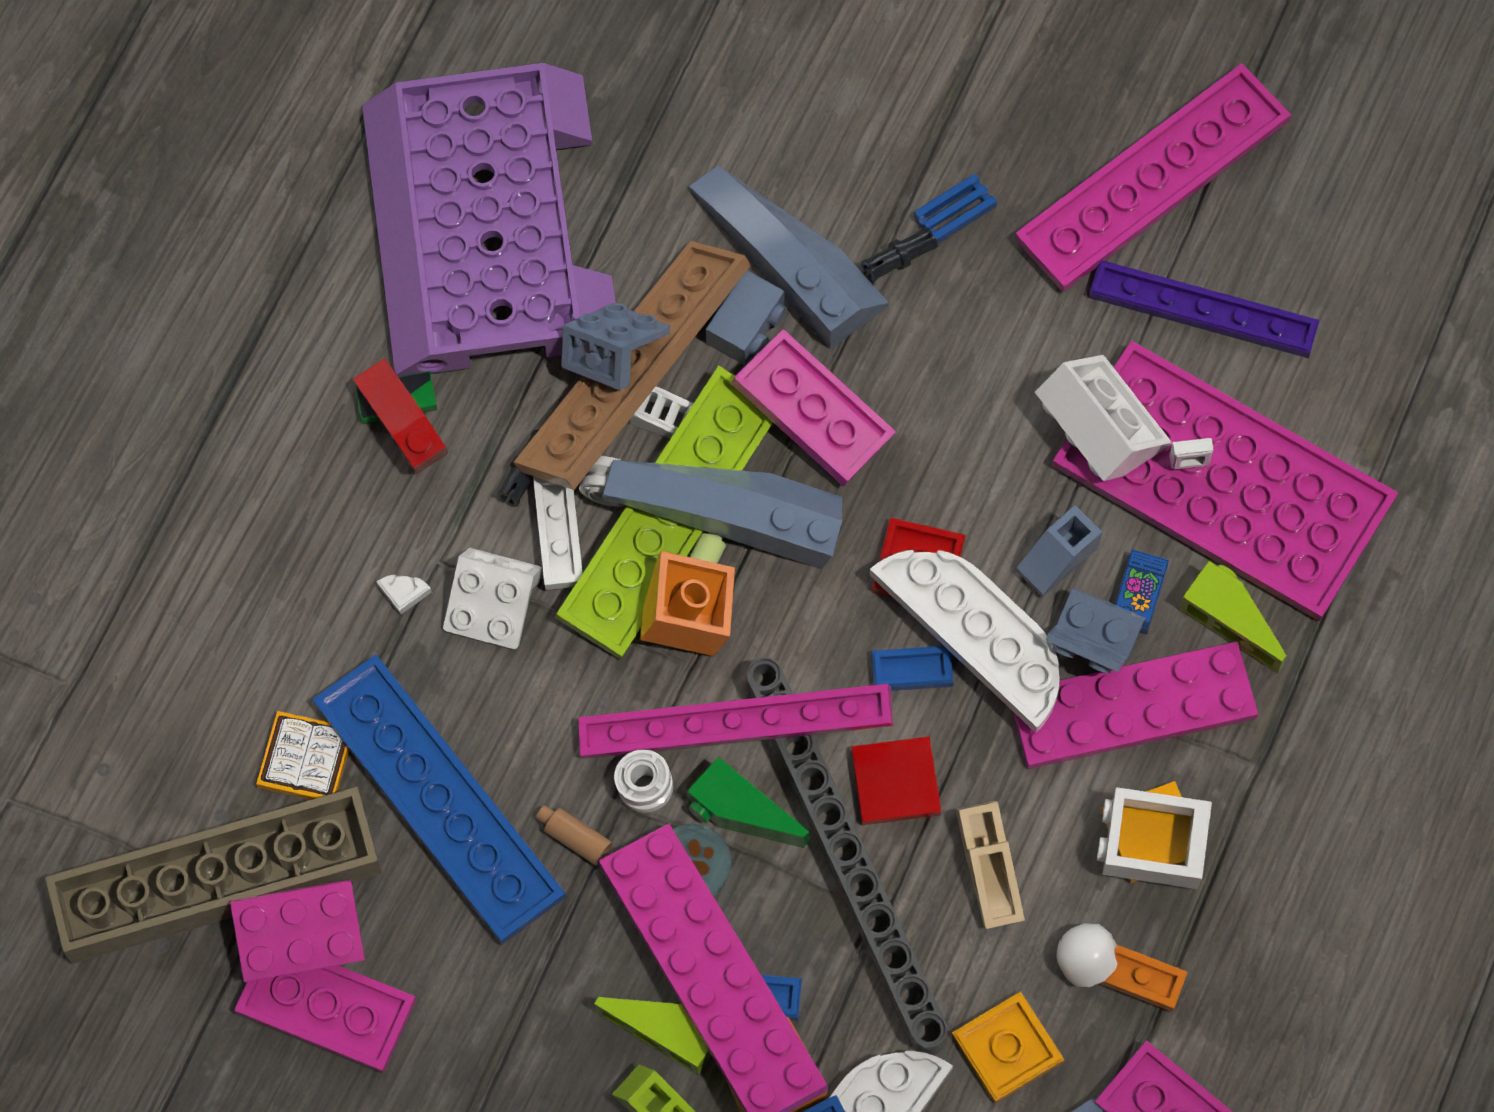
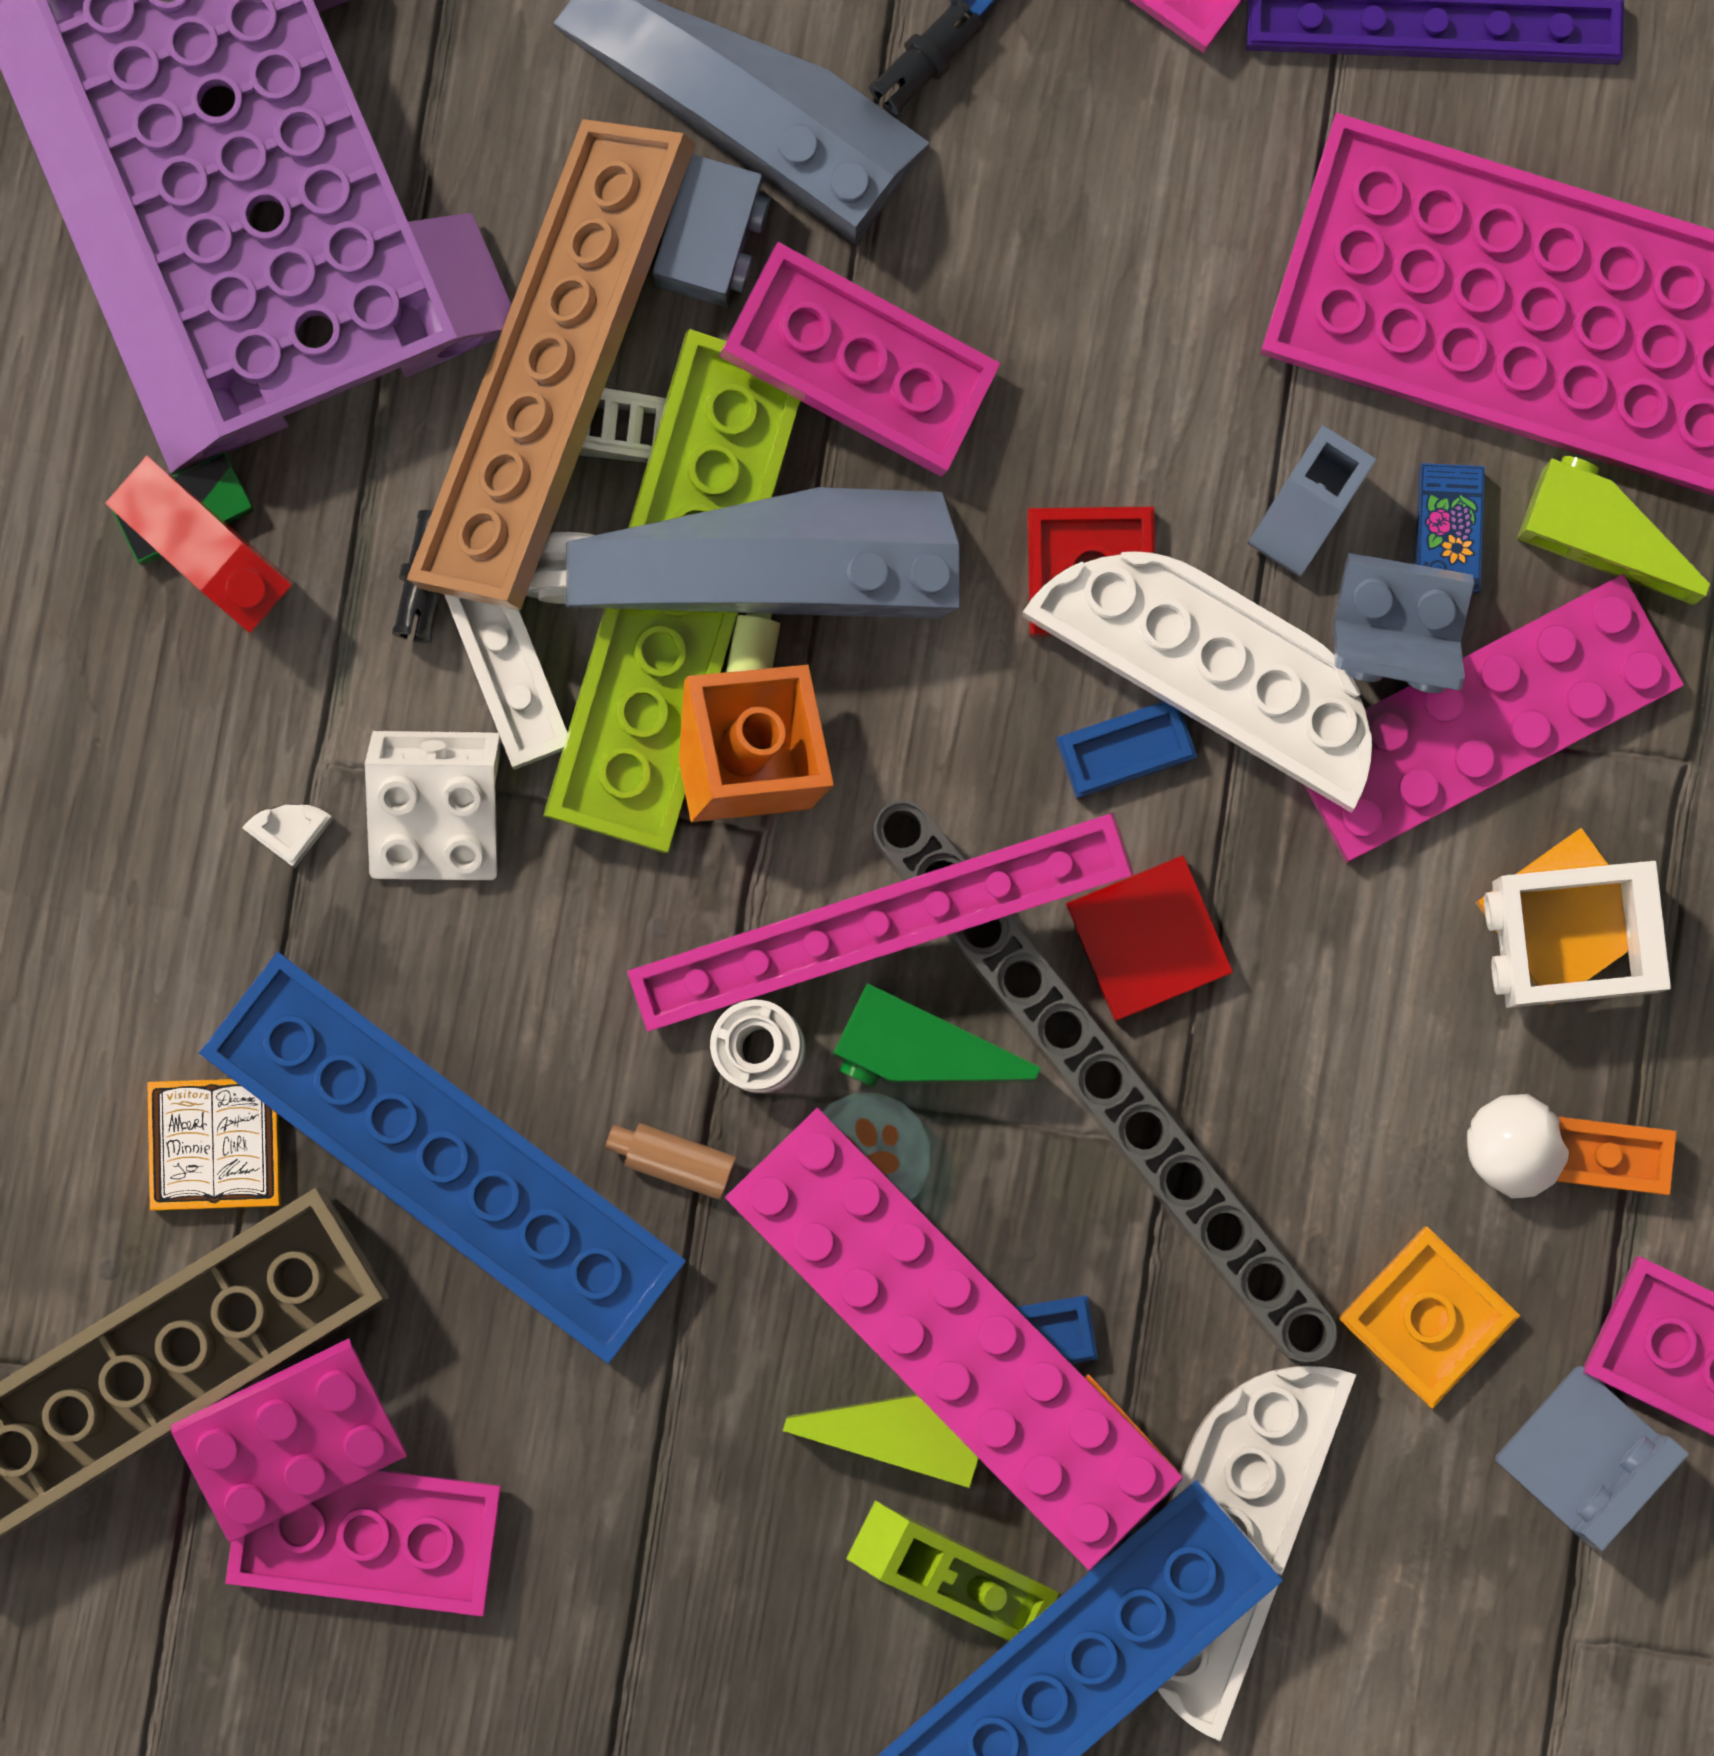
camera: 20 degrees left, 15 degrees up
(602, 343) = (500, 339): sand blue bracket -> none
(990, 864) = (1329, 1035): tan slope -> none
(1101, 416) = (1326, 260): white slope -> none
(1191, 453) = (1482, 287): white tile -> none

